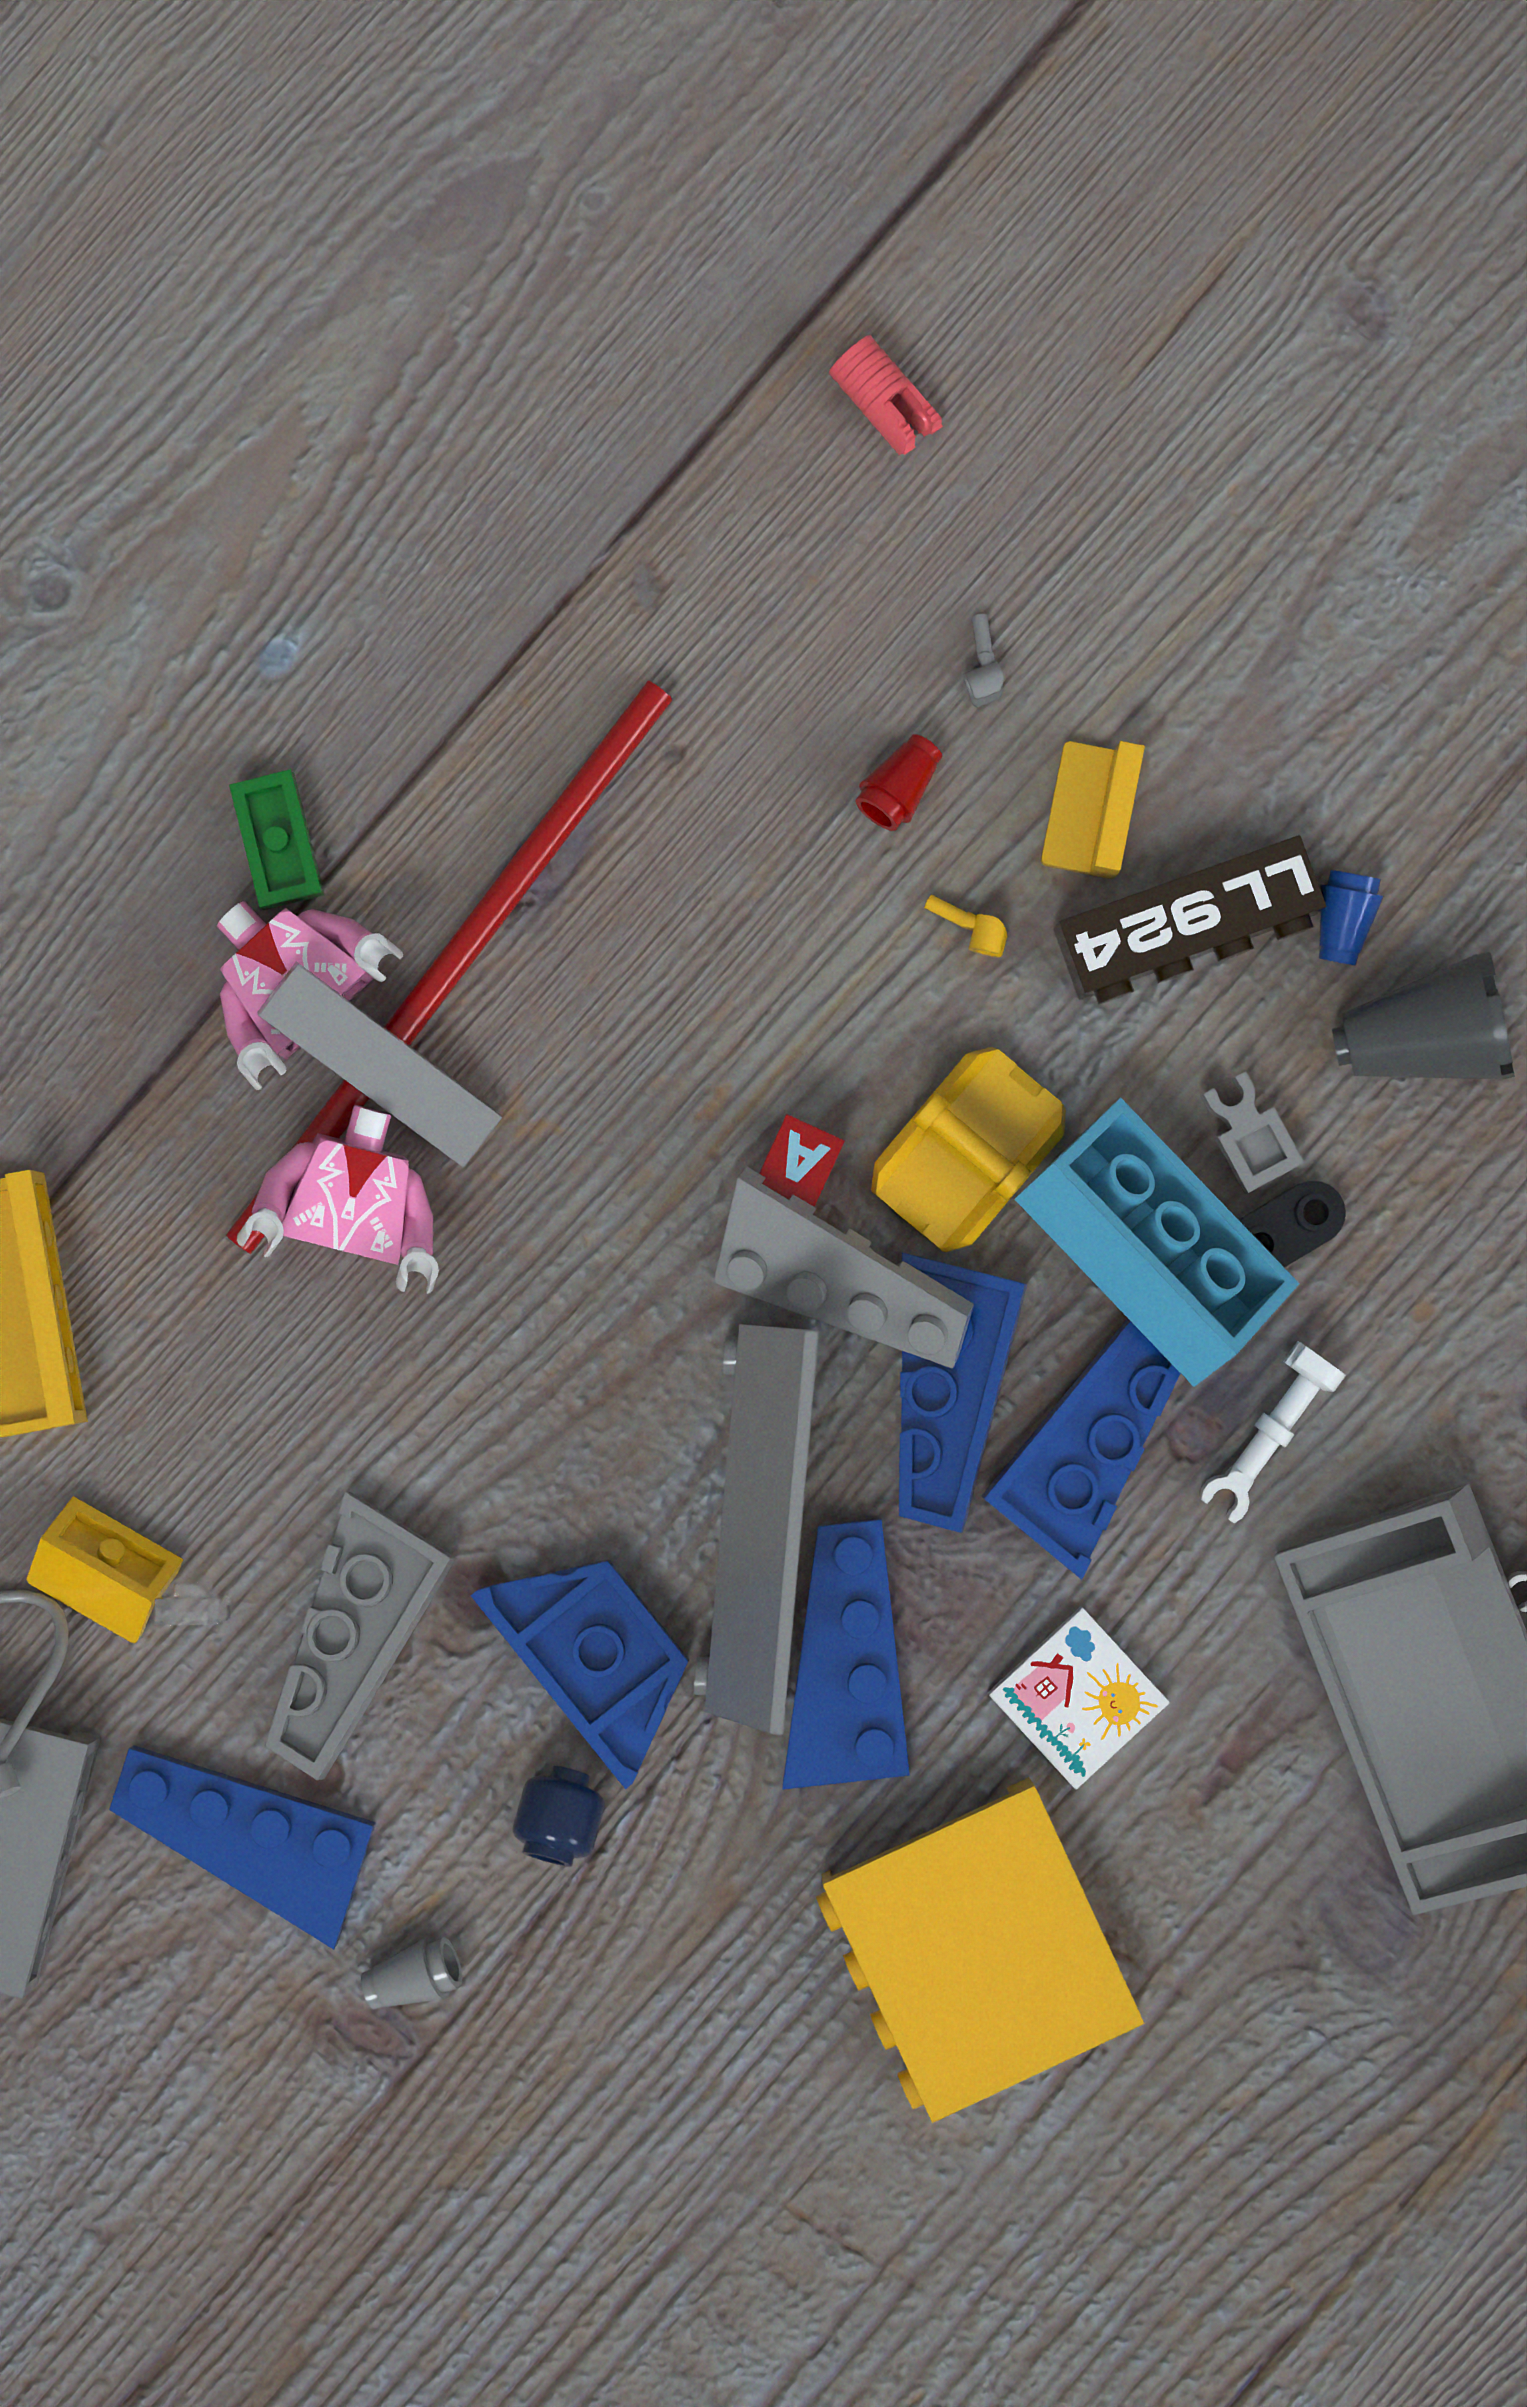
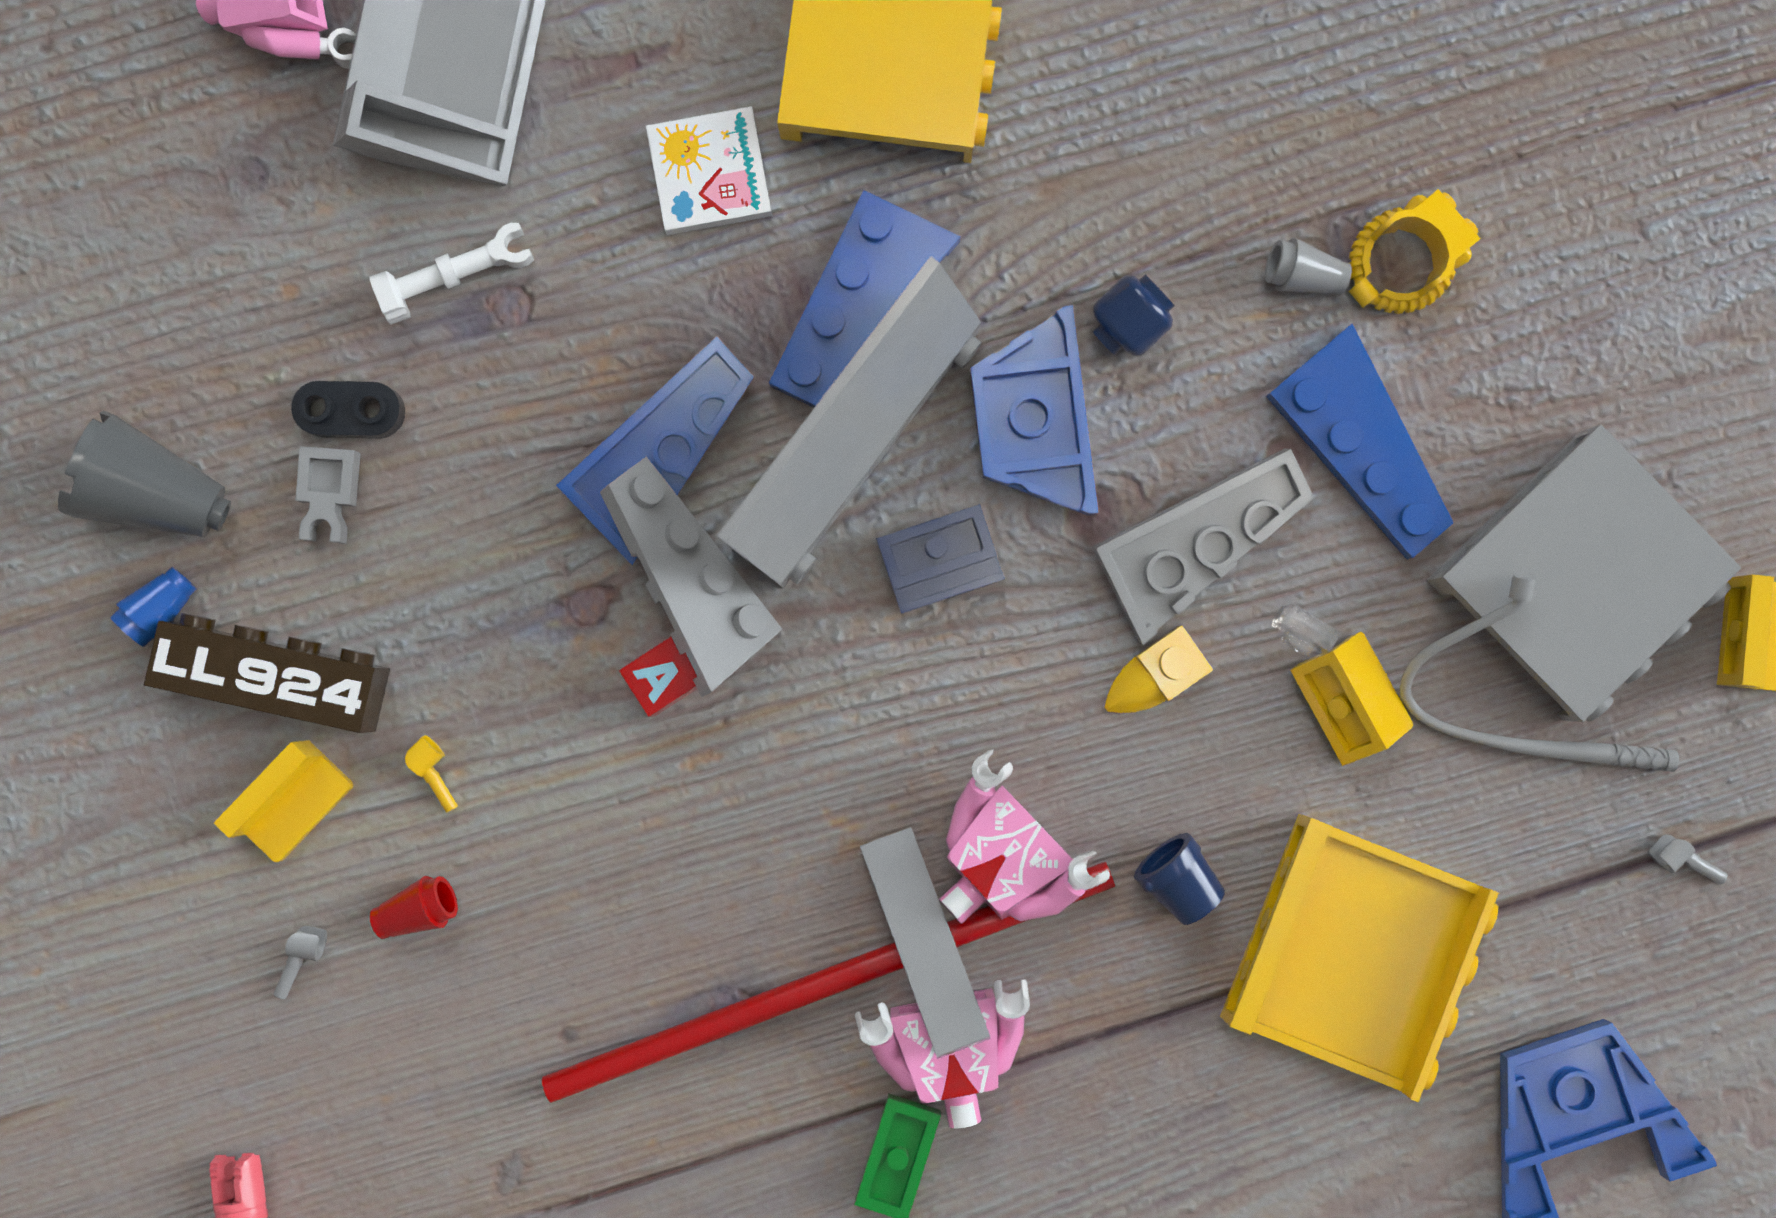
camera: 145 degrees left, 0 degrees up
(165, 1283) = (1181, 879): none -> dark blue piece
(308, 2105) = (1434, 222): none -> yellow piece
(312, 1472) = (1158, 674): none -> yellow plate
(599, 1450) = (940, 559): none -> plate
(968, 1149) = (536, 608): yellow shield -> none
(1080, 1456) = (595, 340): blue wing -> none
(1158, 1243) = (438, 452): medium azure brick -> none

